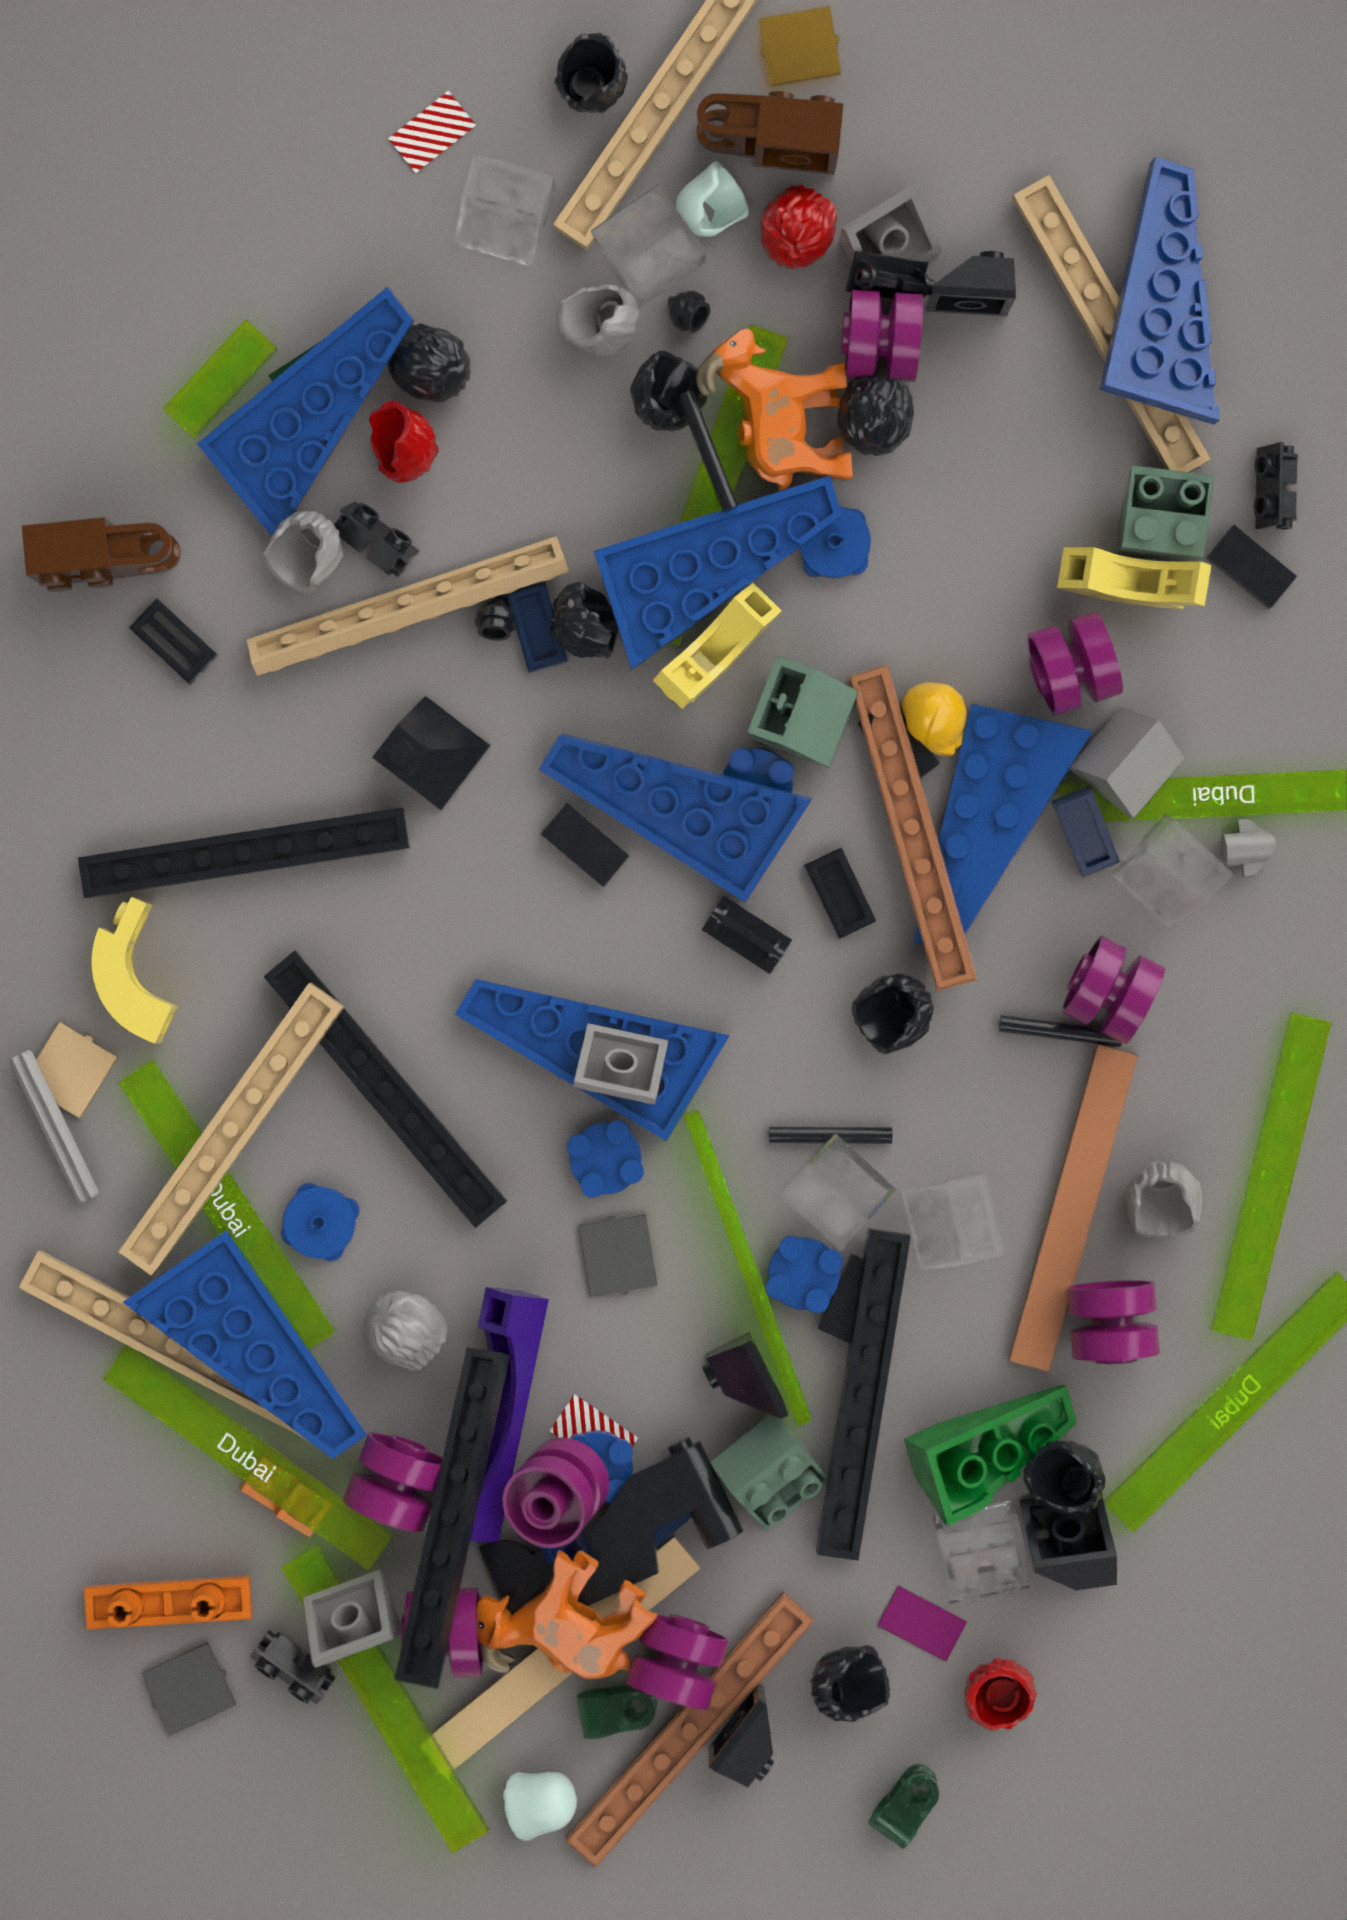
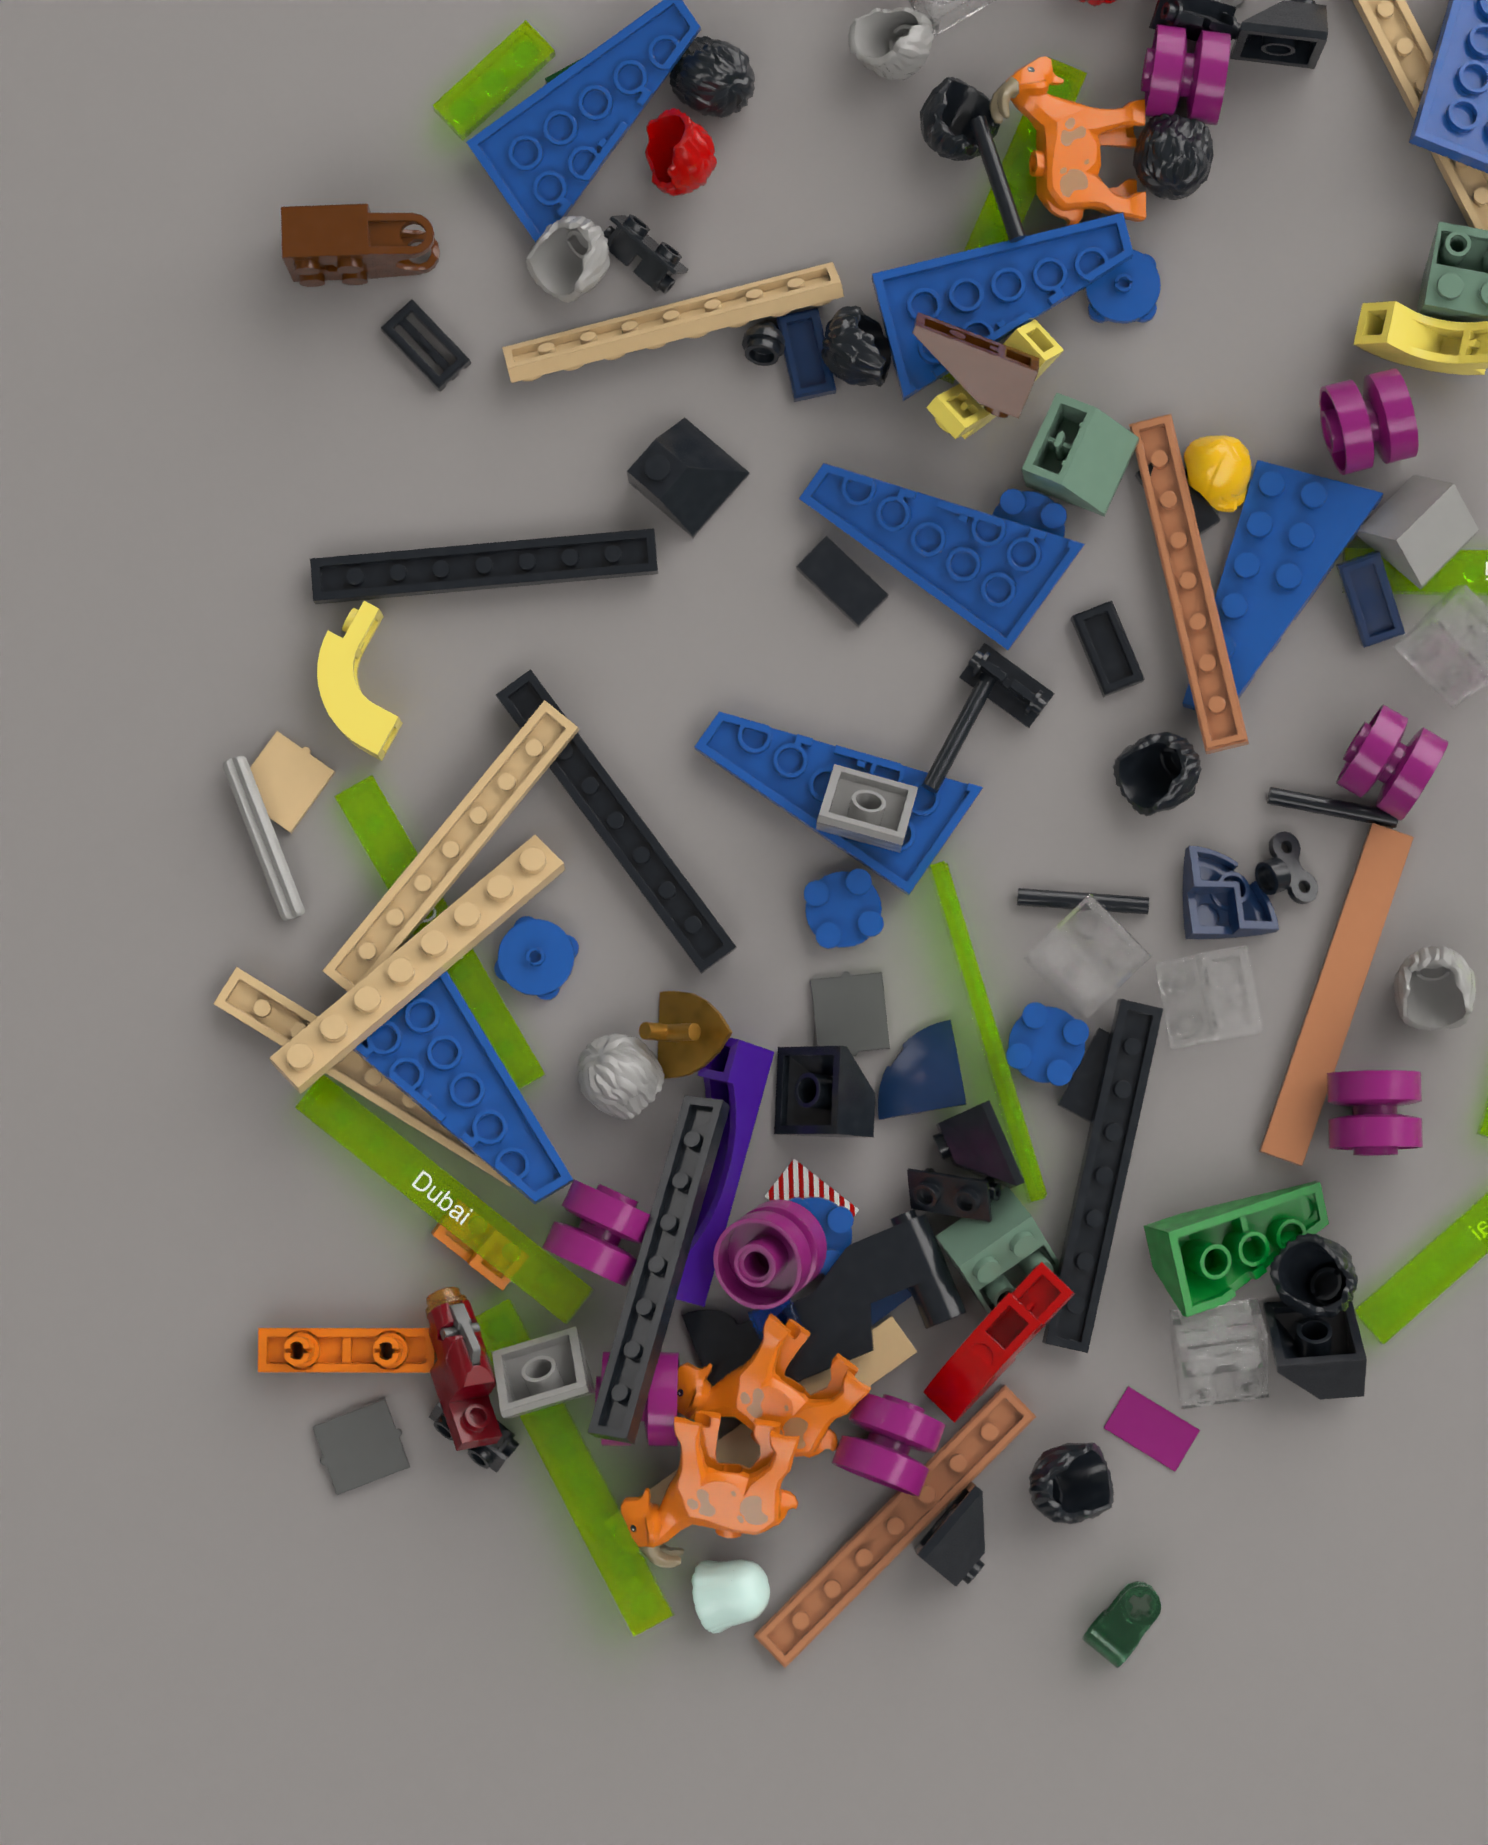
camera: 10 degrees right, 5 degrees down
(207, 1240) = (417, 964): none -> tan plate
(275, 1617) = (461, 1370): none -> dark red plate
(466, 1287) = (687, 1033): none -> pearl gold shield
(517, 1718) = (714, 1493): none -> orange animal
(596, 1336) = (822, 1093): none -> black slope
(609, 1710) = (815, 1499): clear green piece -> none
(688, 310) = (984, 41): black plate -> none
(690, 1309) = (923, 1075): none -> dark blue brick
(704, 985) = (959, 733): none -> black bar
(706, 639) = (985, 369): none -> slope
(718, 1422) = (952, 1194): none -> black hinge
(774, 1556) = (997, 1342): none -> red slope
(959, 1126) = (1221, 901): none -> dark blue brick
(999, 1694) = (1232, 1506): red hair -> none
(1018, 1094) = (1285, 871): none -> black piece

